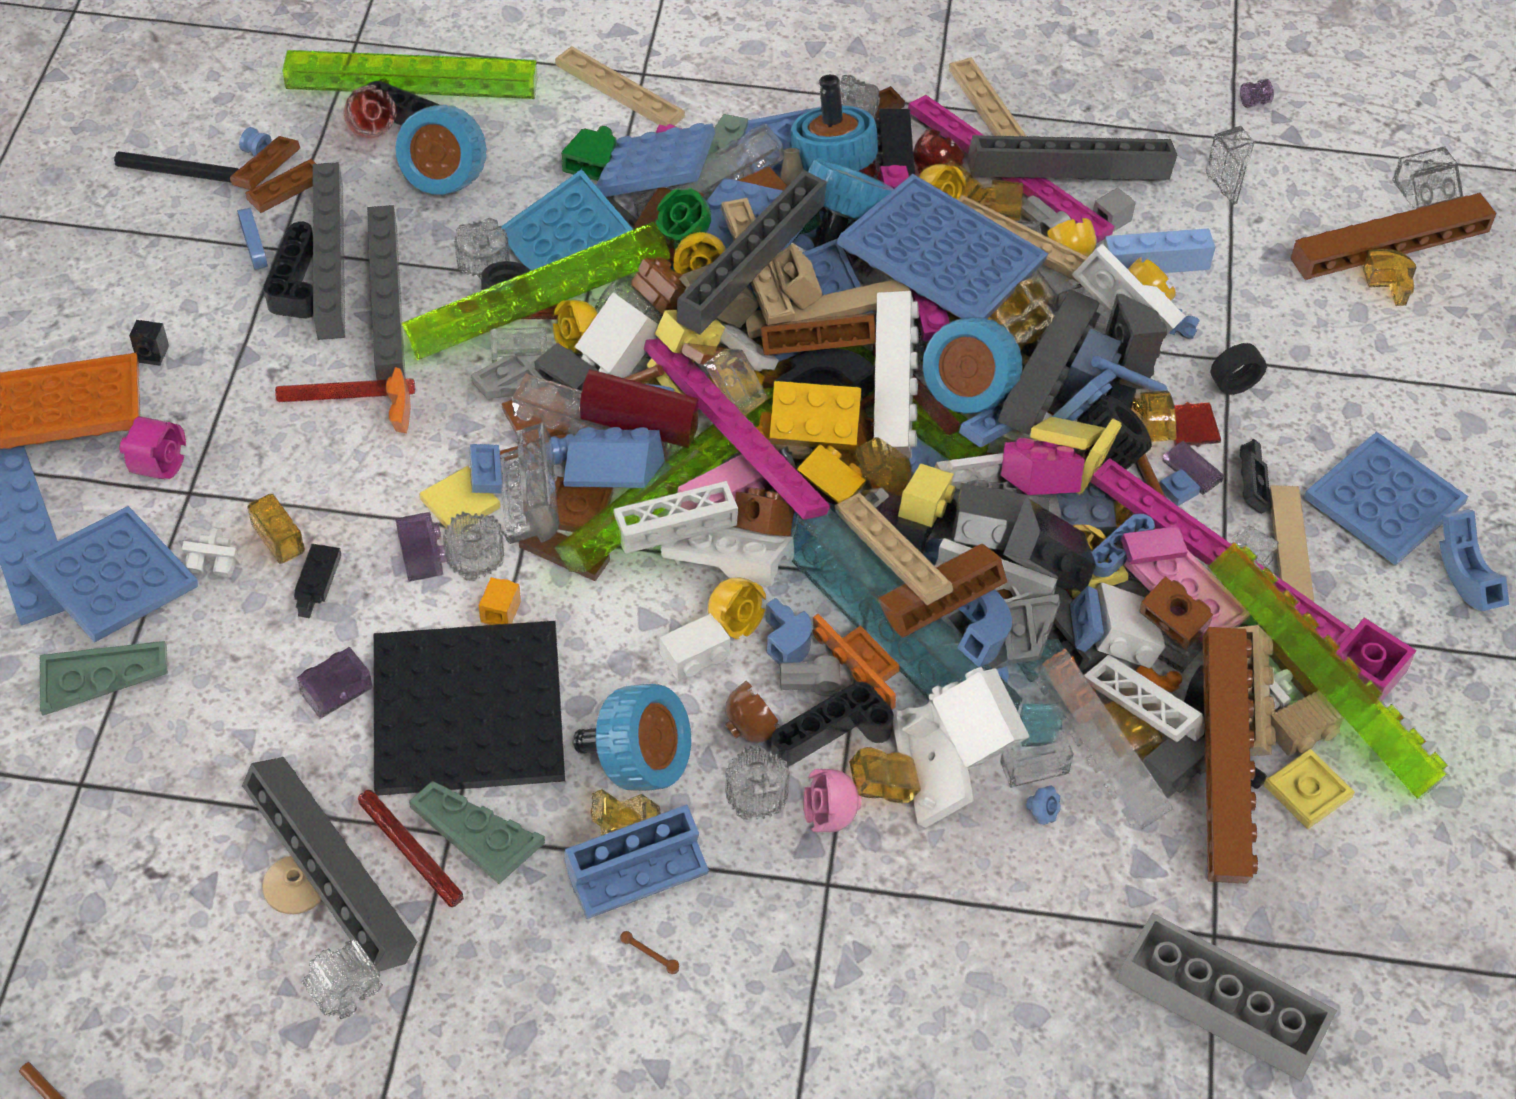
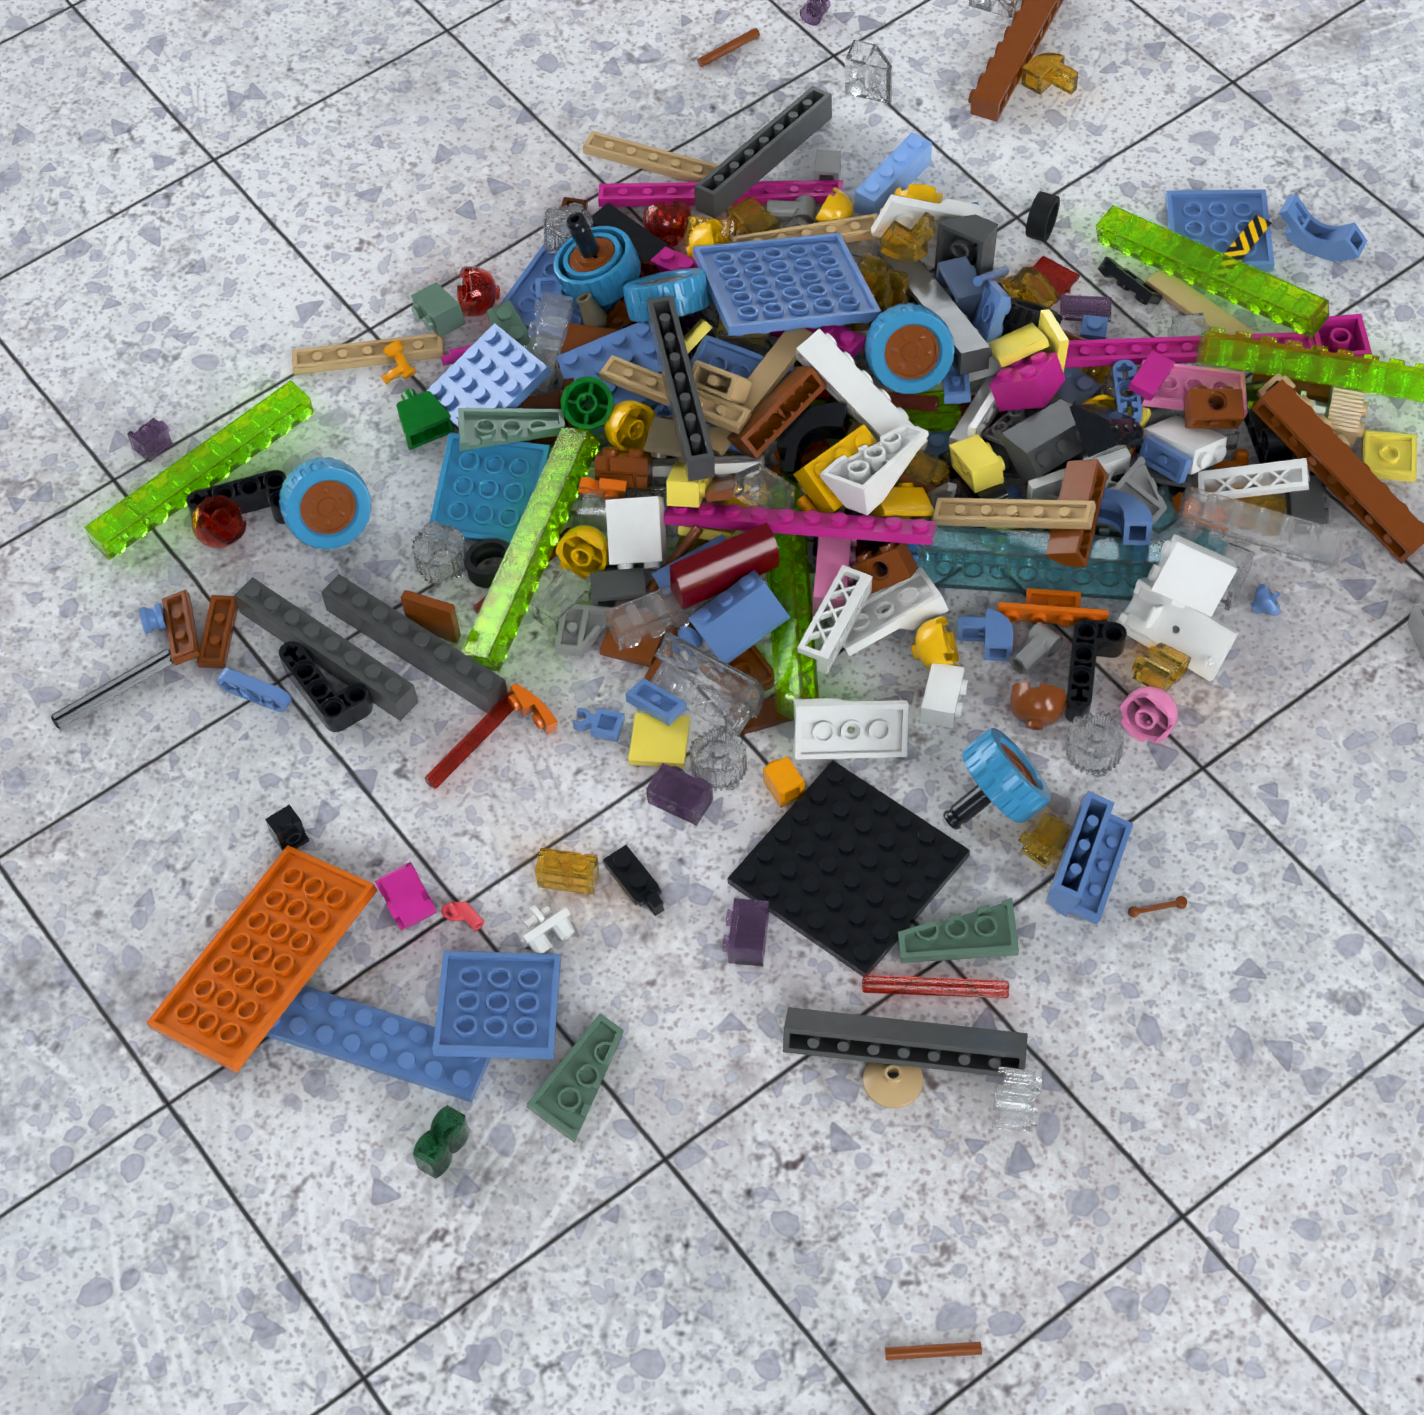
camera: 40 degrees left, 5 degrees up
(181, 495) = (462, 912): none -> coral arm
(407, 32) = (151, 439): none -> clear purple brick
(415, 280) = (432, 615): none -> dark orange tile
(435, 455) = (602, 725): none -> medium blue plate
(565, 588) = (823, 726): none -> white piece
(614, 188) = (506, 425): none -> sand green wing
(631, 289) = (603, 488): none -> orange plate
(632, 95) = (403, 369): none -> light orange piece
(696, 91) = (437, 310): none -> sand green brick
(740, 98) = (477, 291): none -> clear red cylinder
(817, 237) = (696, 333): none -> light yellow tile
(819, 428) = (870, 474): none -> white wedge
(1088, 298) = (906, 244): none -> clear yellow brick
(1154, 74) = (728, 47): none -> dark orange bar
(1326, 519) = (1213, 271): none -> clear neon green brick
(1383, 522) = (1248, 238): none -> sticker

